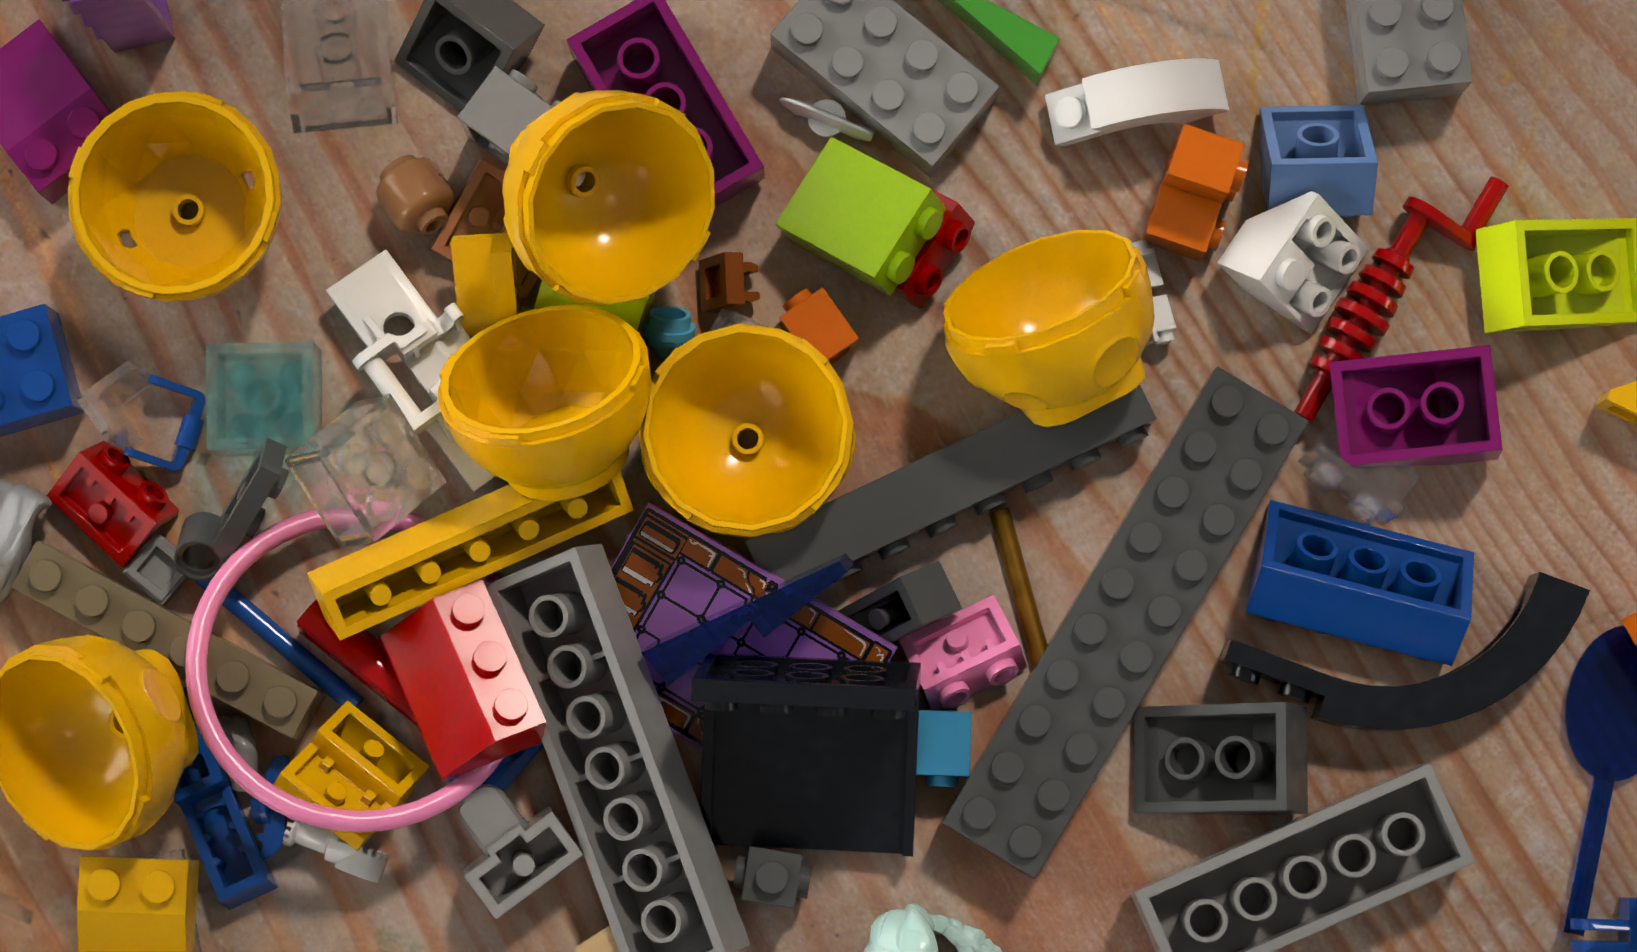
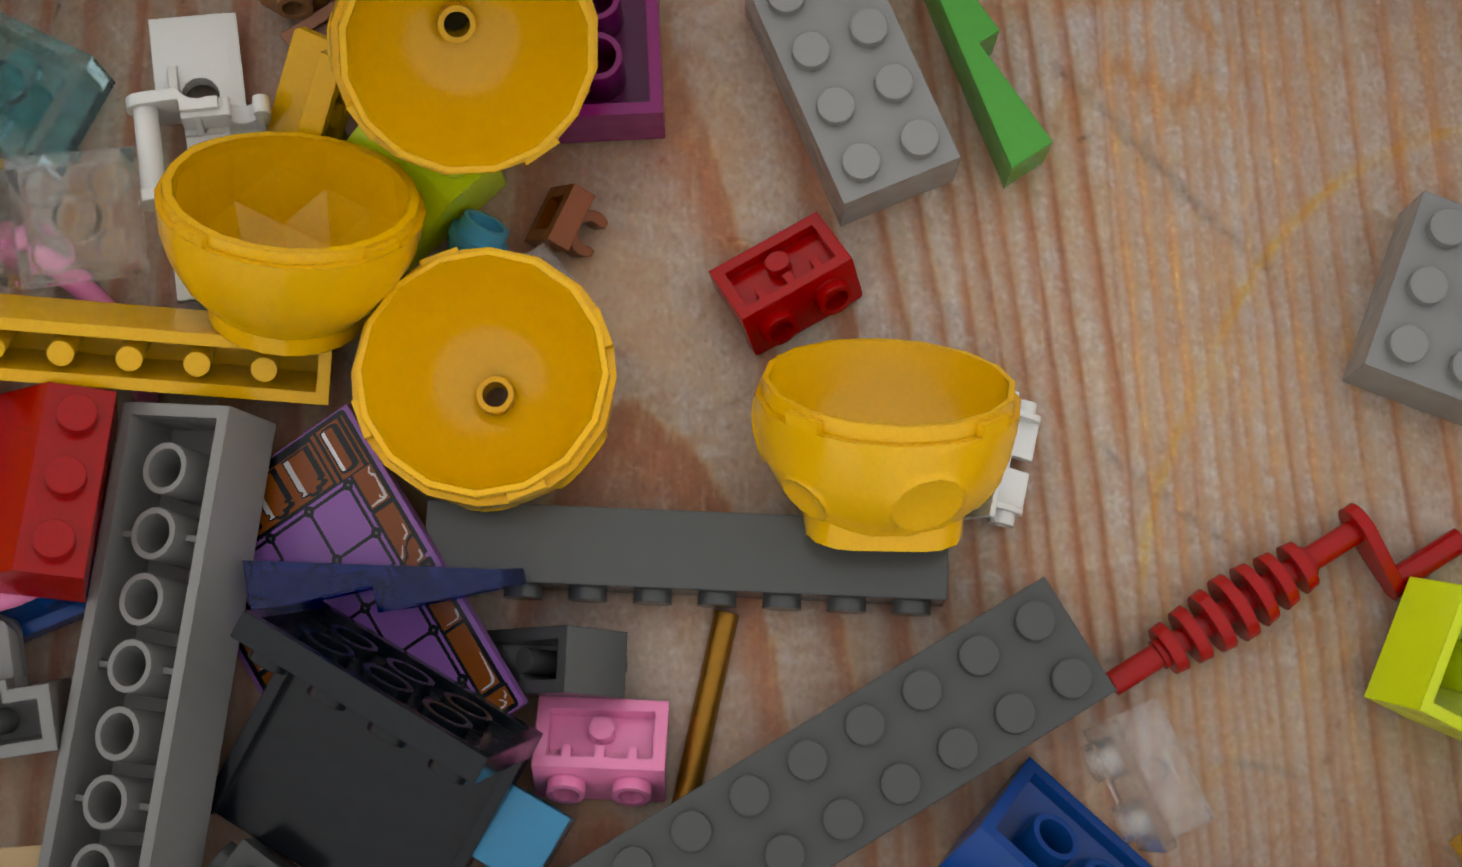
camera: 30 degrees right, 5 degrees down
(819, 323) = (634, 316): orange brick -> none
(827, 118) = (763, 109): white piece -> none
(862, 216) = (741, 221): lime brick -> none
(1137, 97) = (1108, 244): white arch -> none
(1195, 183) = (1125, 364): orange brick -> none
(1295, 258) = (1191, 505): white slope -> none
(1319, 152) = (1268, 416): medium blue slope -> none
(1417, 408) = (1248, 741): magenta slope -> none

